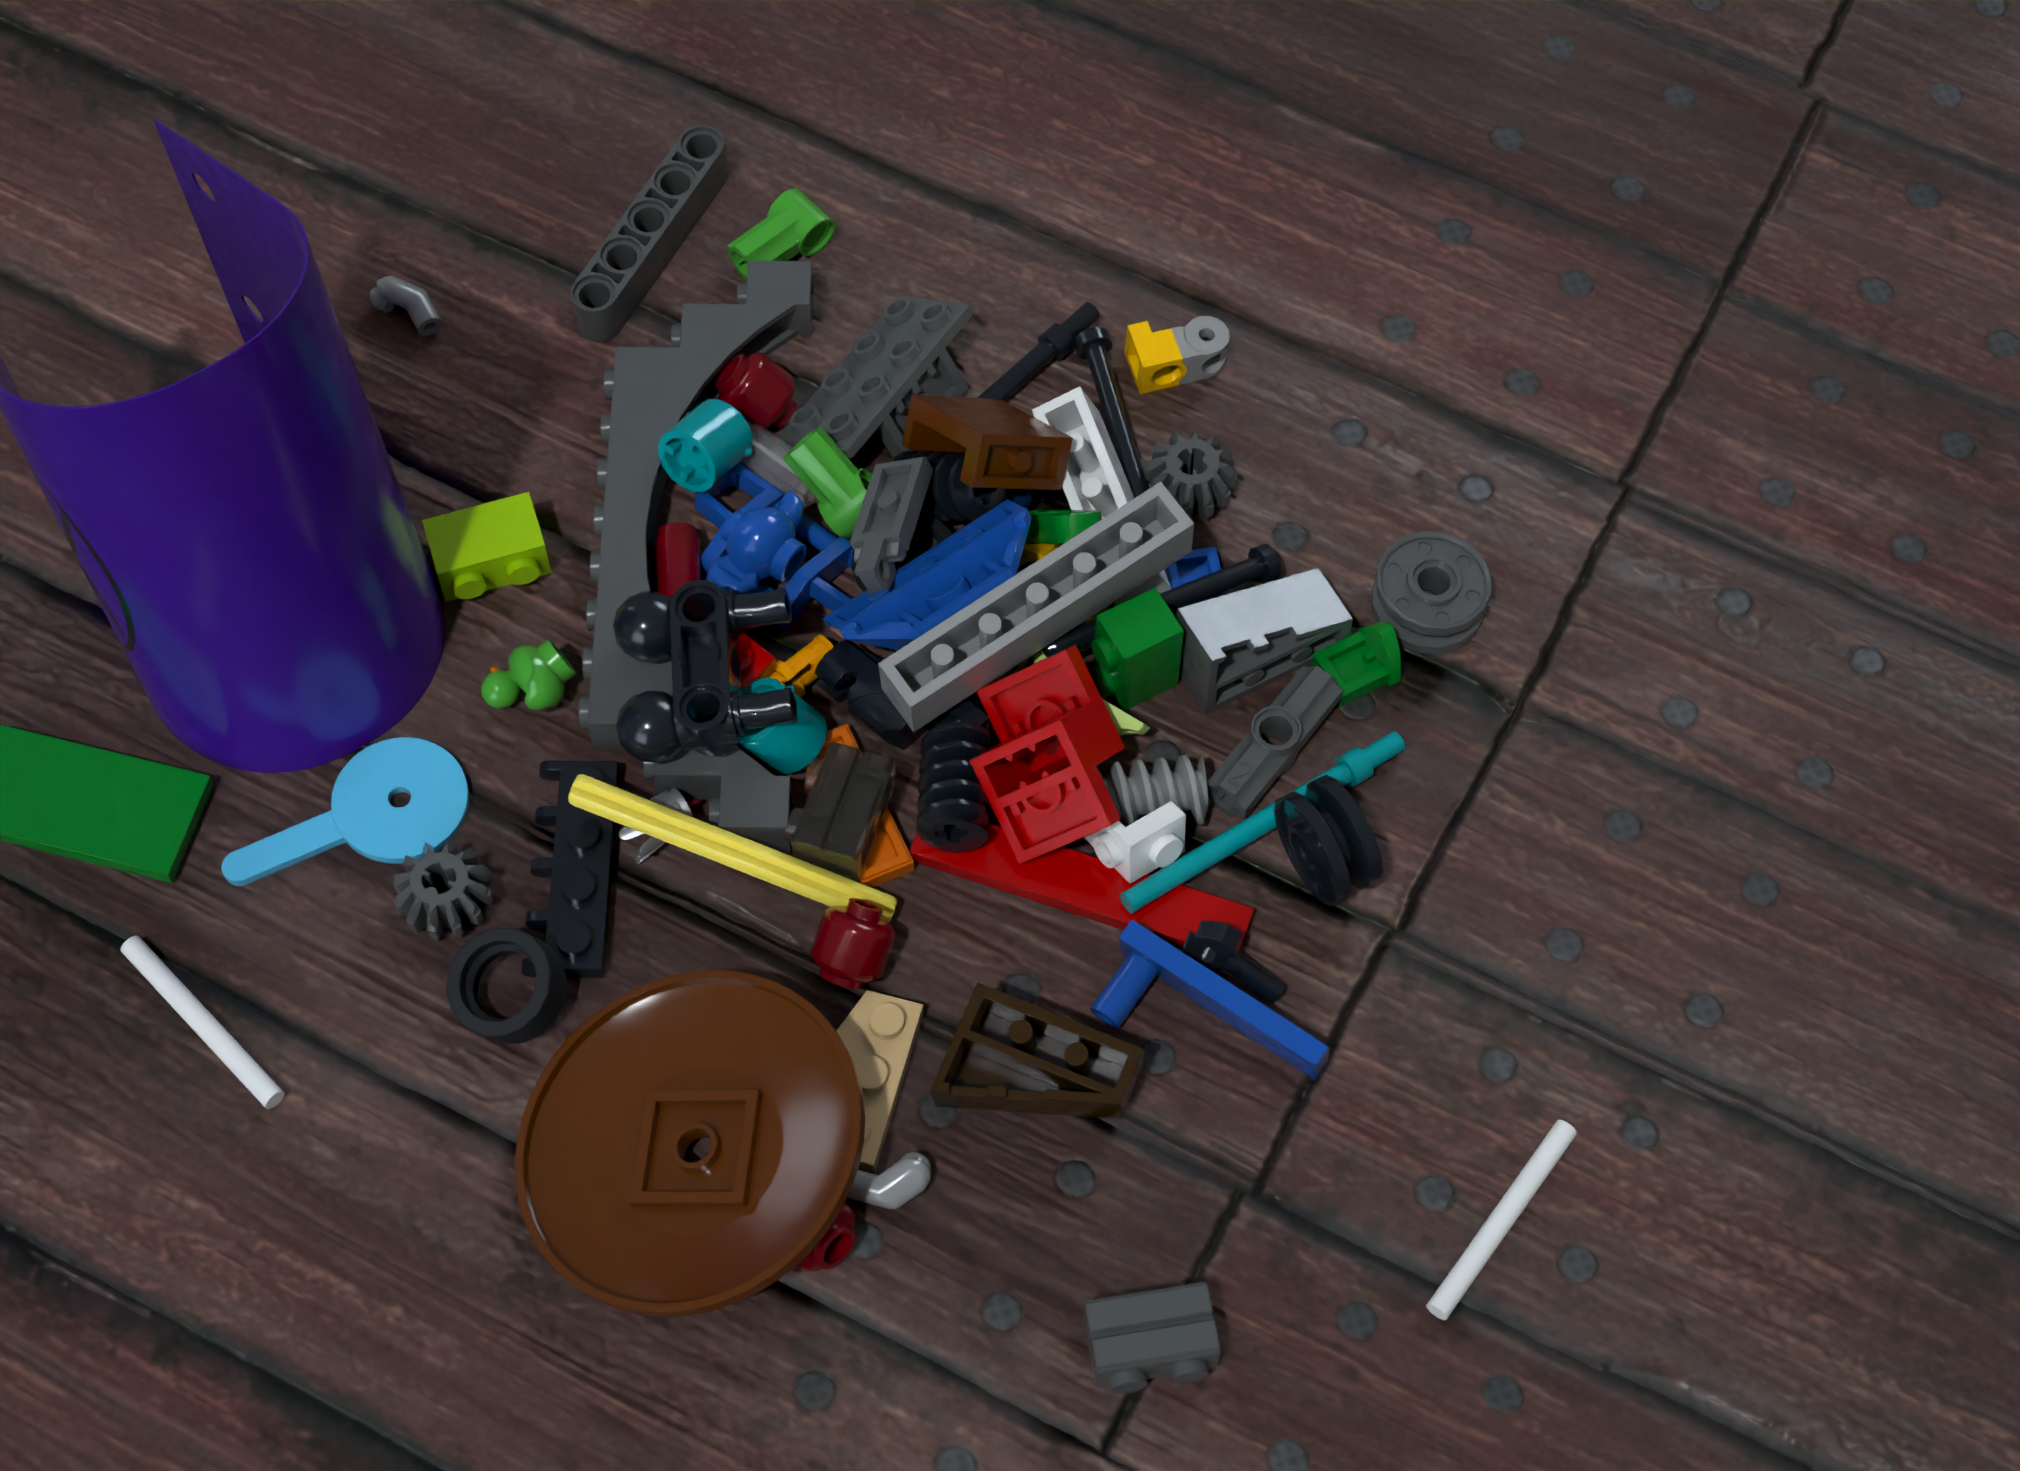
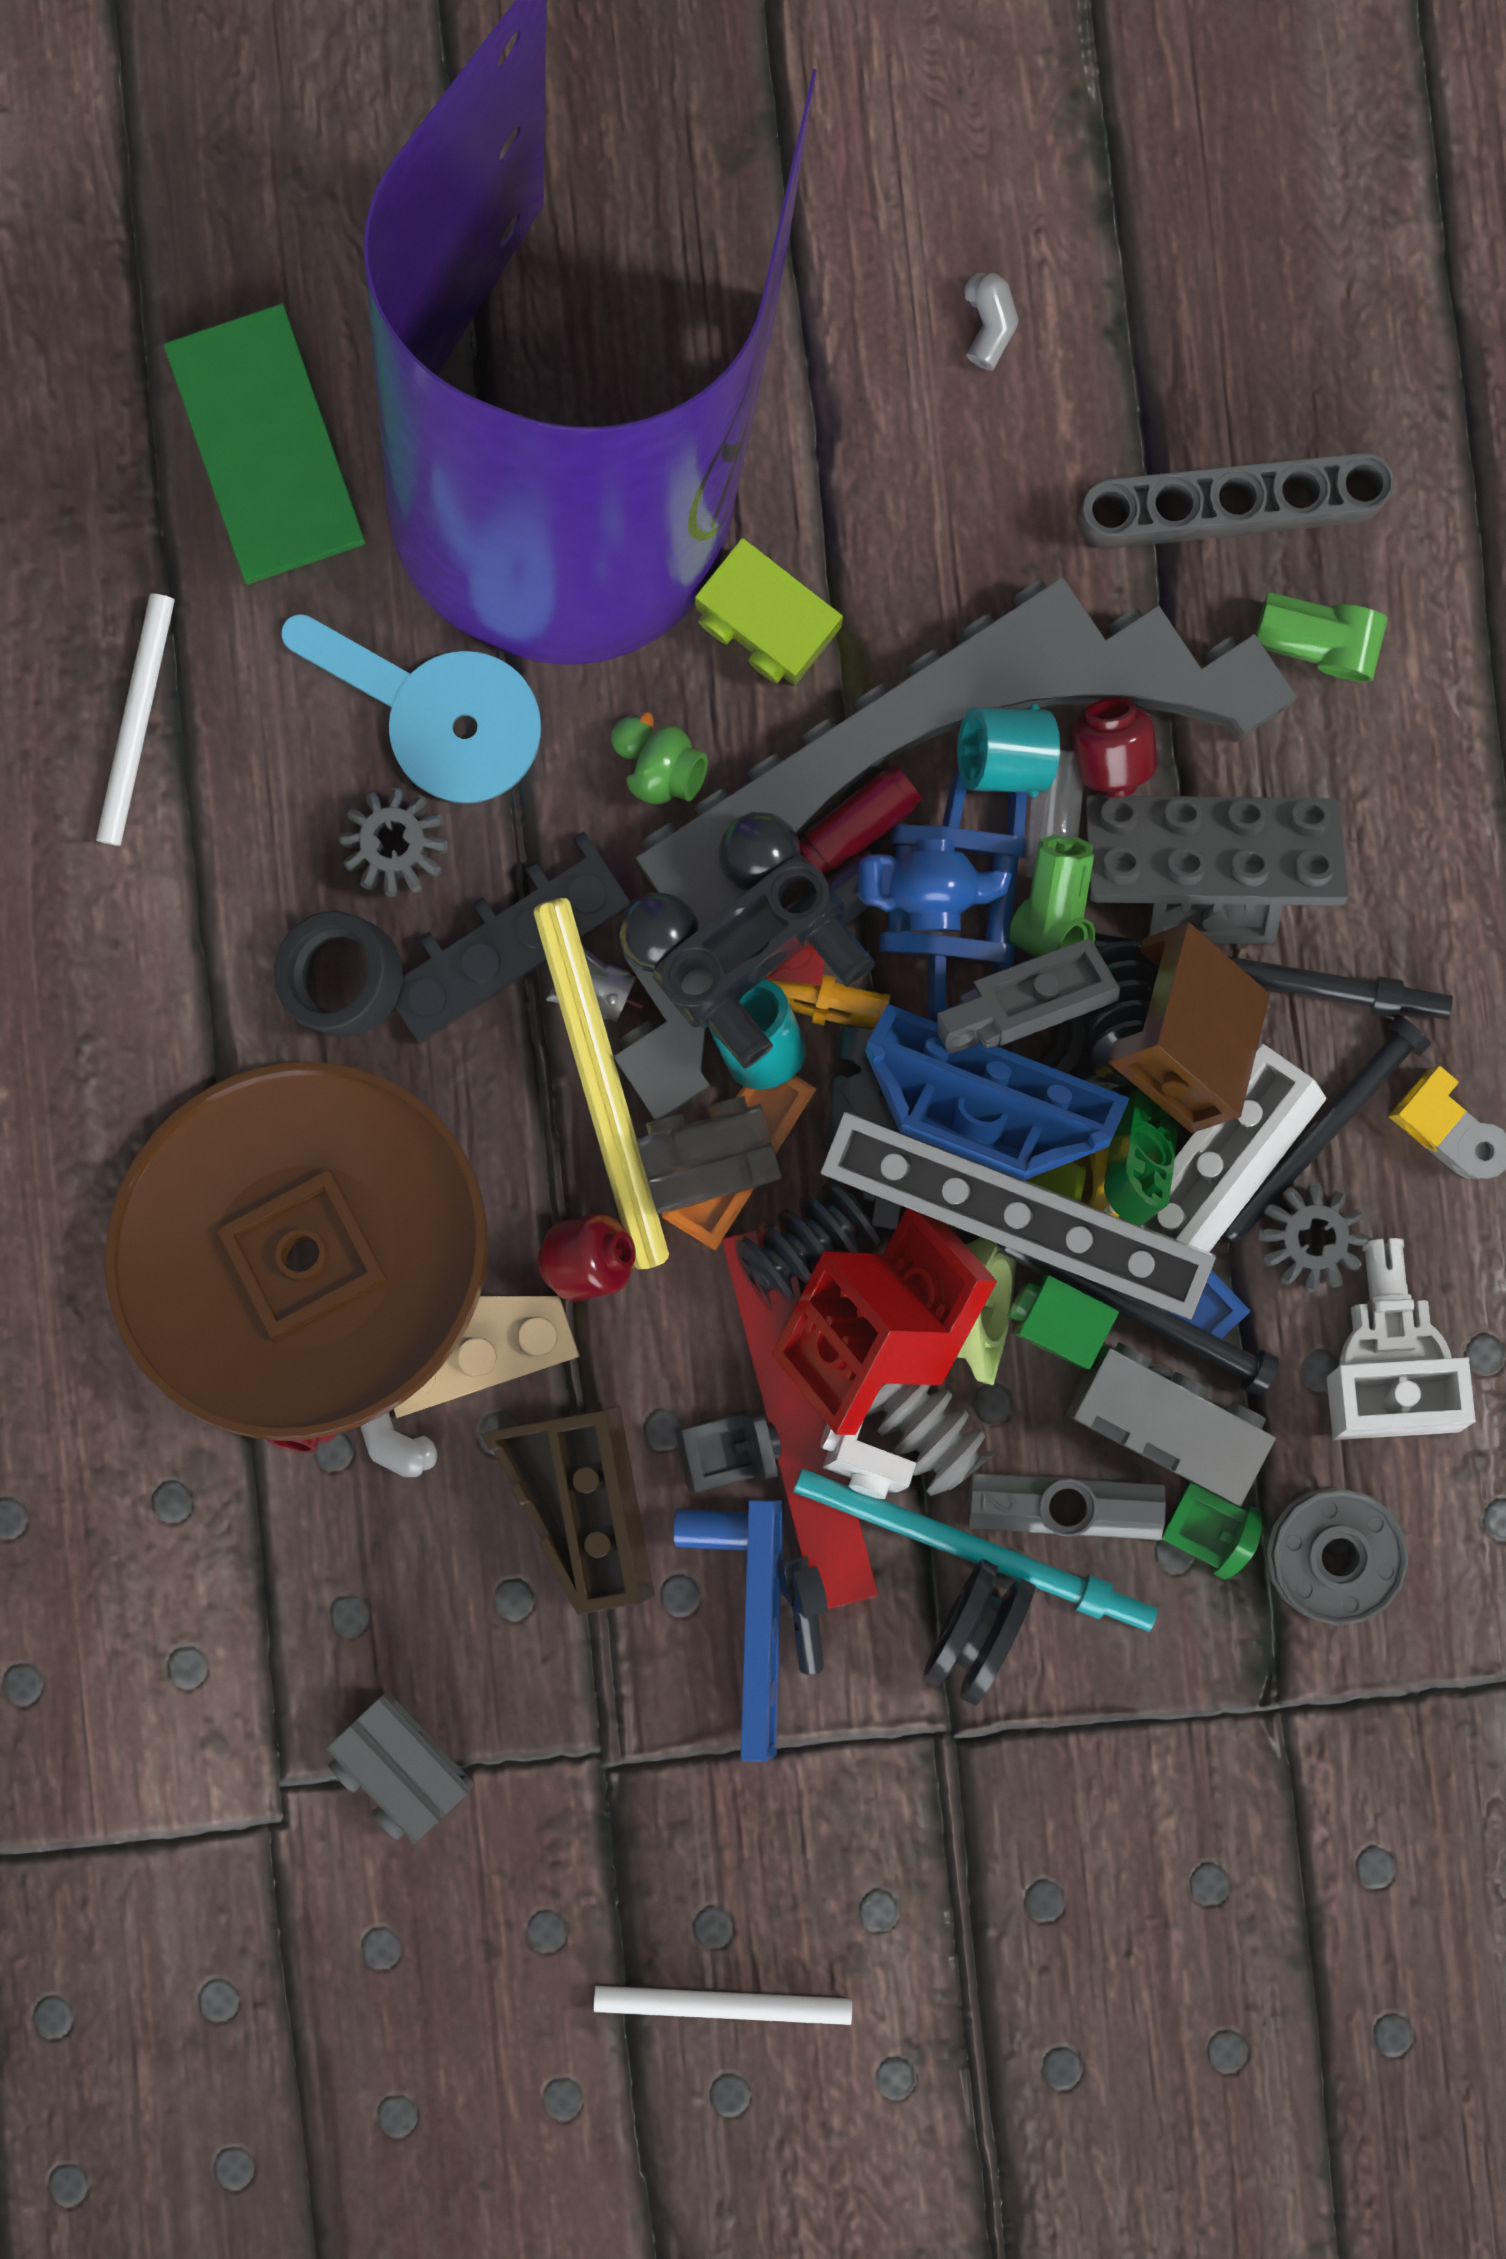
camera: 55 degrees right, 25 degrees up
(1071, 938) = (728, 1450): none -> black bracket
(1322, 475) = (1395, 1364): none -> white brick

